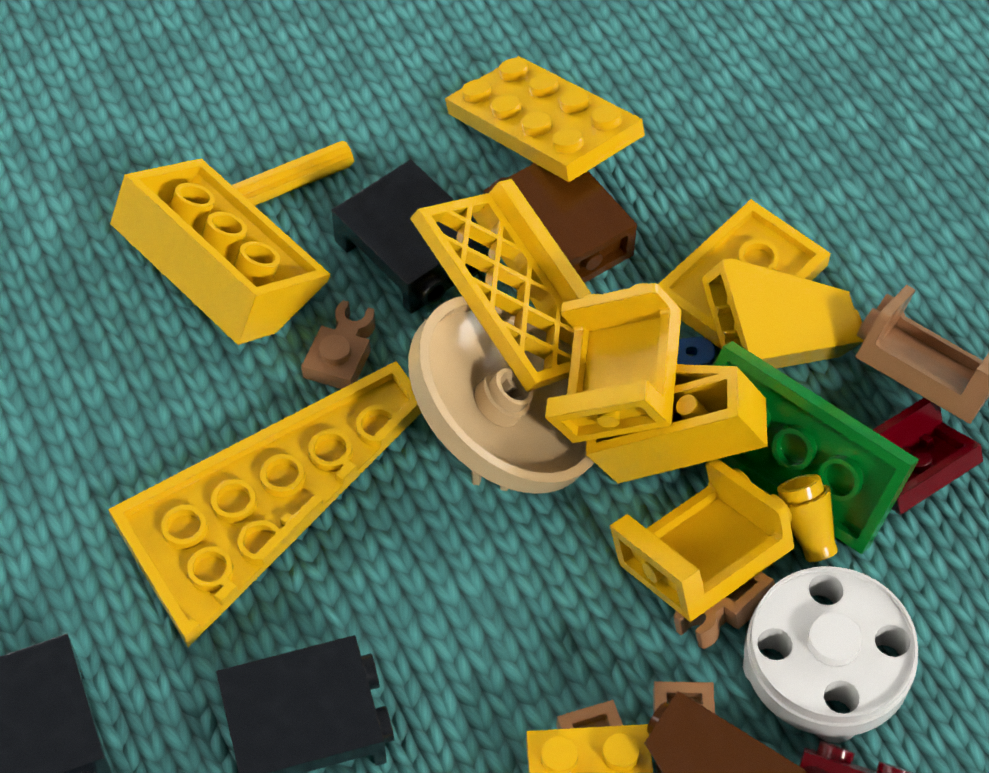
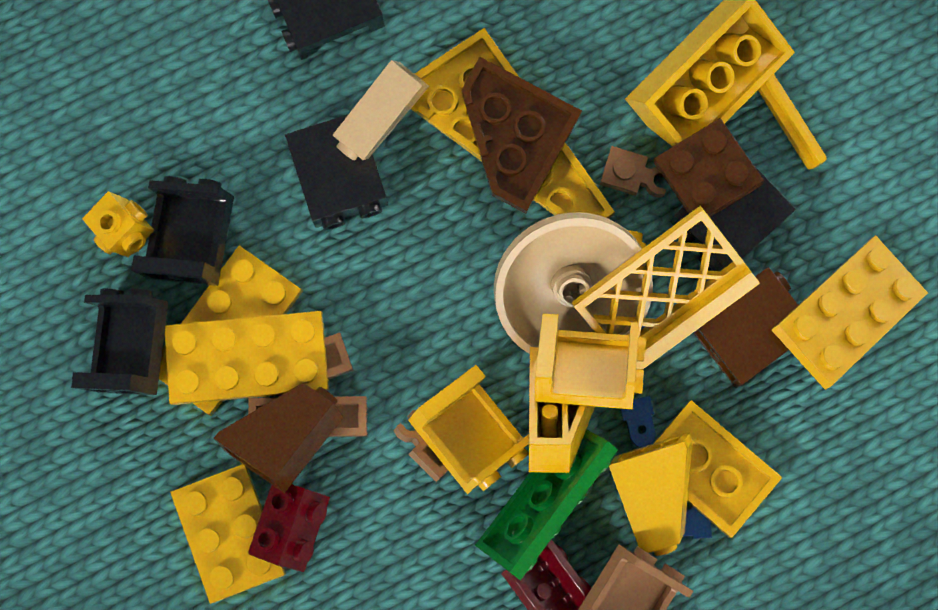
camera: 90 degrees right, 25 degrees up
(223, 619) = (379, 111): none -> tan slope
(272, 463) = (515, 131): none -> reddish brown plate
(354, 241) = (708, 170): none -> reddish brown plate
(811, 515) = (496, 504): yellow cone -> none
(831, 652) = (391, 516): white piece -> none

